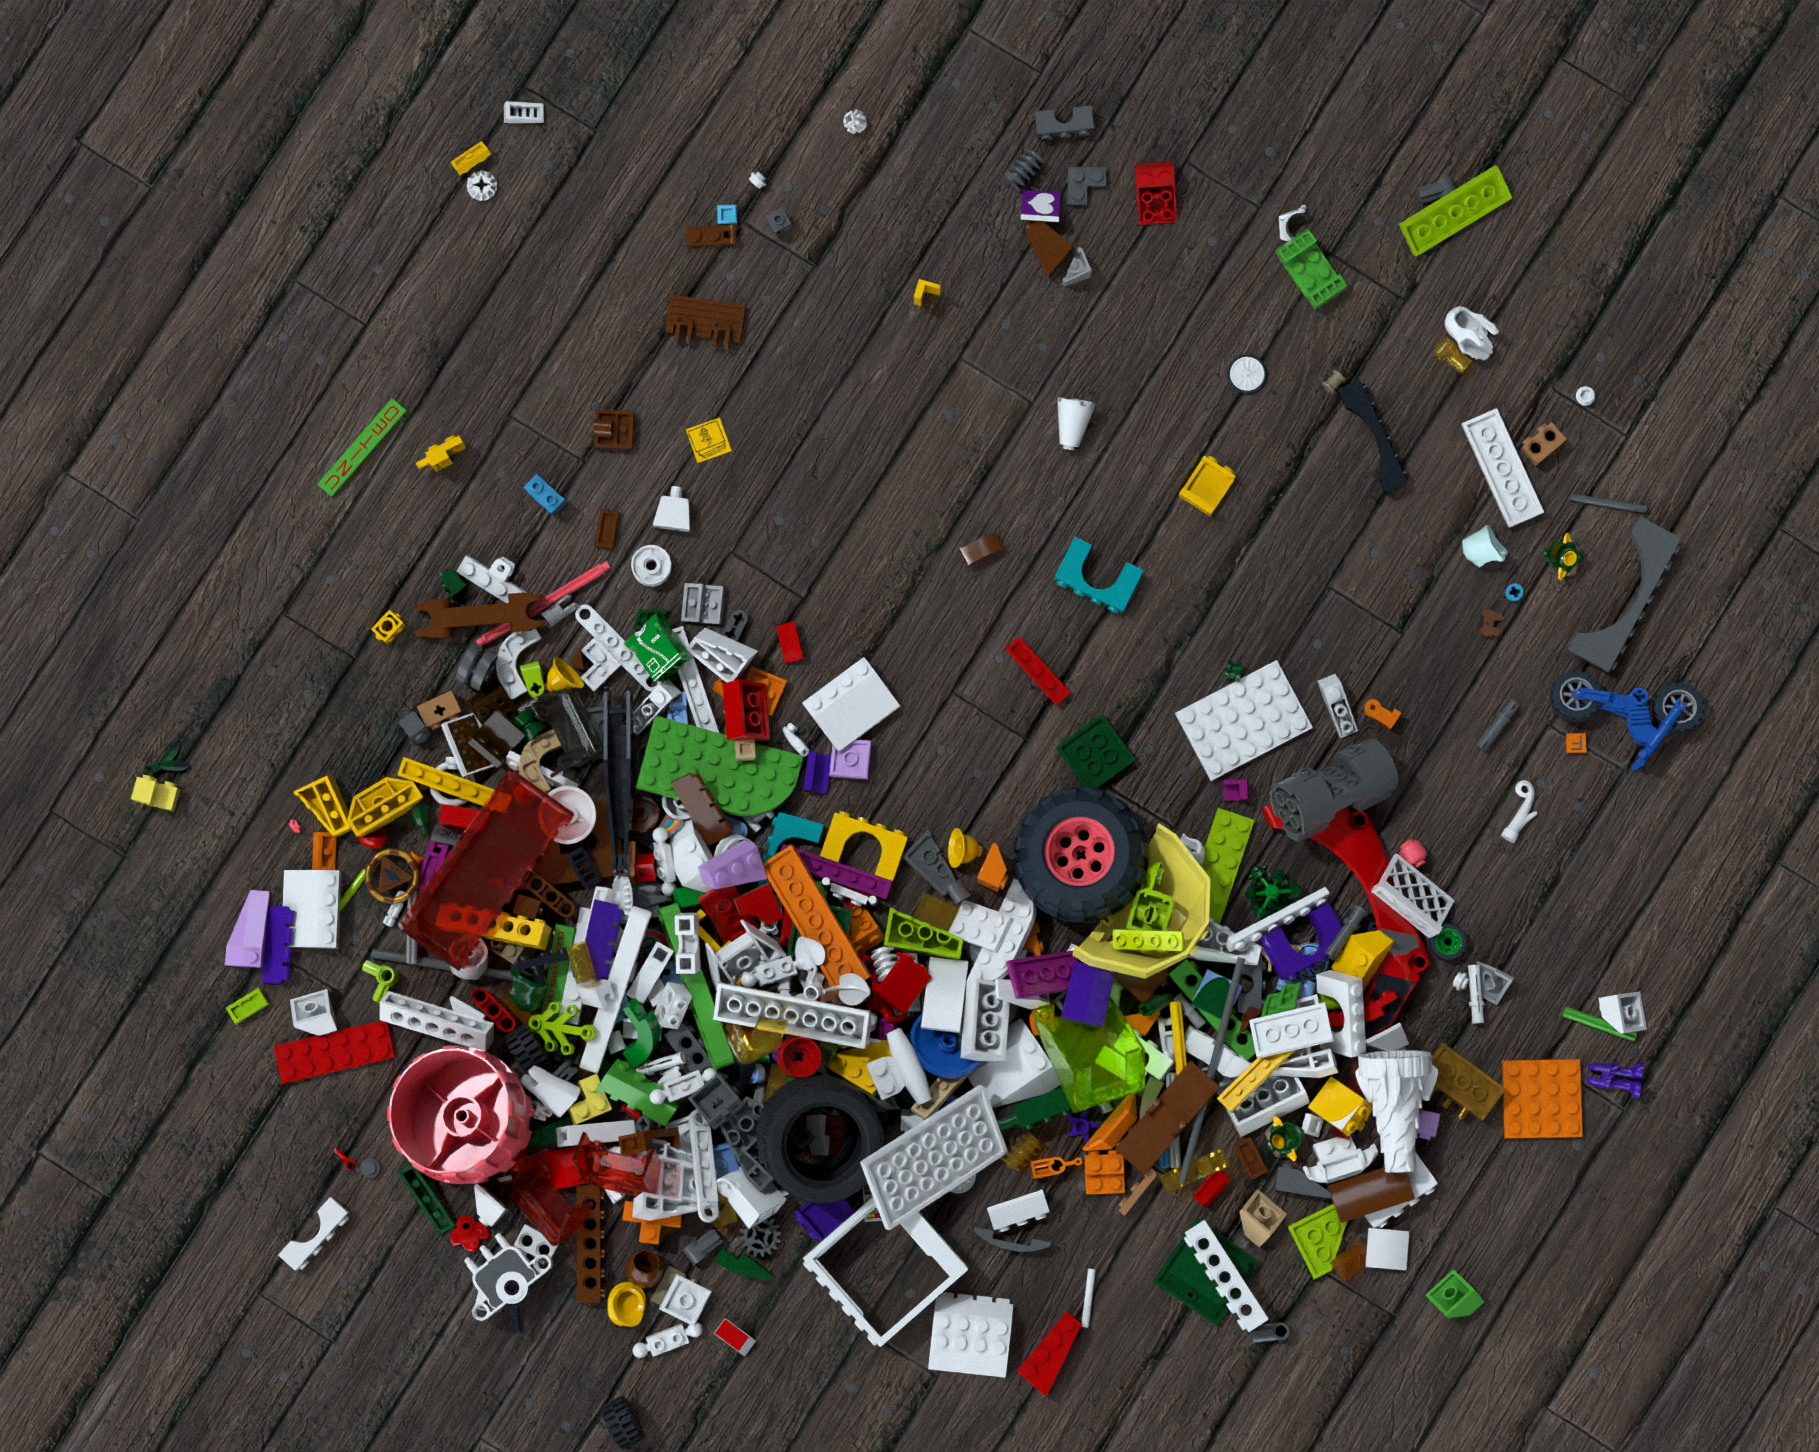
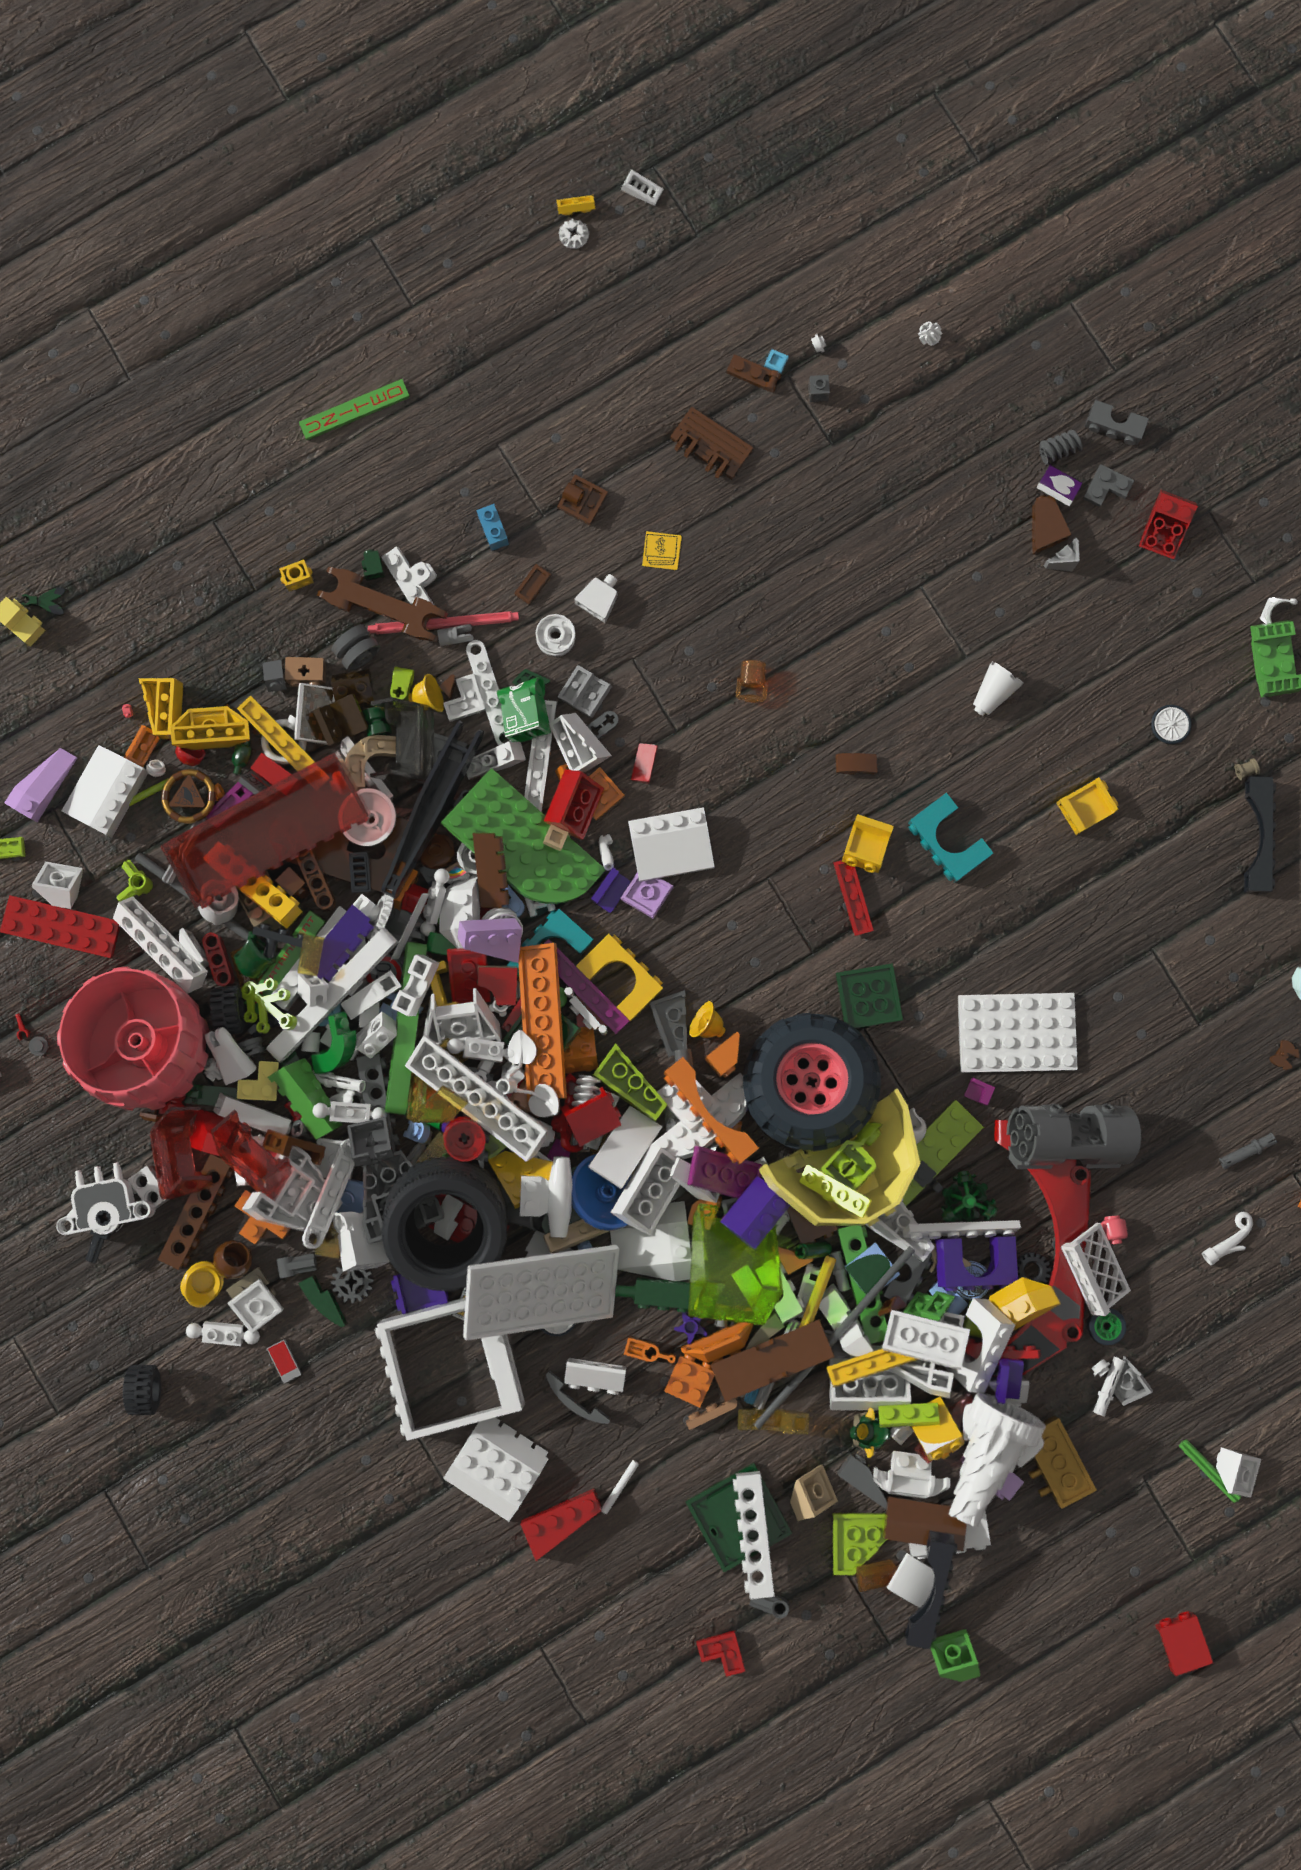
camera: 25 degrees right, 0 degrees up
(277, 937) = (54, 812): dark purple windscreen -> none
(348, 865) = (156, 768): none -> white plate
(393, 912) = (175, 829): white axle -> none
(427, 1196) = (75, 1103): dark green slope -> none
(439, 455) = (419, 446): yellow plate -> none
(469, 1236) = (95, 1151): red plate -> none
(488, 1206) = (124, 1132): white slope -> none
(507, 660) = (387, 655): white plate -> none
(654, 894) = (411, 923): none -> white sticker
(677, 709) = (515, 773): light blue slope -> none
(742, 1075) = (407, 1130): black slope -> none
(848, 515) = (752, 677): none -> clear orange piece
(925, 286) = (921, 507): yellow panel -> none
(935, 912) = (652, 1067): clear yellow plate -> none
(1022, 1152) = (625, 1324): clear yellow piece -> none
(1026, 617) = (867, 844): none -> yellow panel
(1041, 941) = (684, 1079): none -> orange arch
(1211, 1188) = (780, 1444): red plate -> none
(1222, 888) = (924, 1176): none -> black plate
(1233, 671) = (1030, 983): dark green wheel -> none
(1250, 1158) = (829, 1433): reddish brown plate -> none
(1250, 1390) = (722, 1646): none -> red plate
(1310, 1105) = (908, 1415): none -> lime plate
(1337, 705) = (1110, 1060): white slope -> none
(1350, 925) = (1026, 1267): dark grey pin -> none
(1381, 715) = (1141, 1082): orange leg -> none
(1381, 1029) = (1009, 1380): none -> dark purple panel
(1411, 1283) = (922, 1623): none -> black arch
(1542, 1098) = (1123, 1513): orange plate -> none
(1609, 1070) = (1200, 1519): dark purple piece -> none
(1647, 1184) = (1184, 1643): none -> red panel

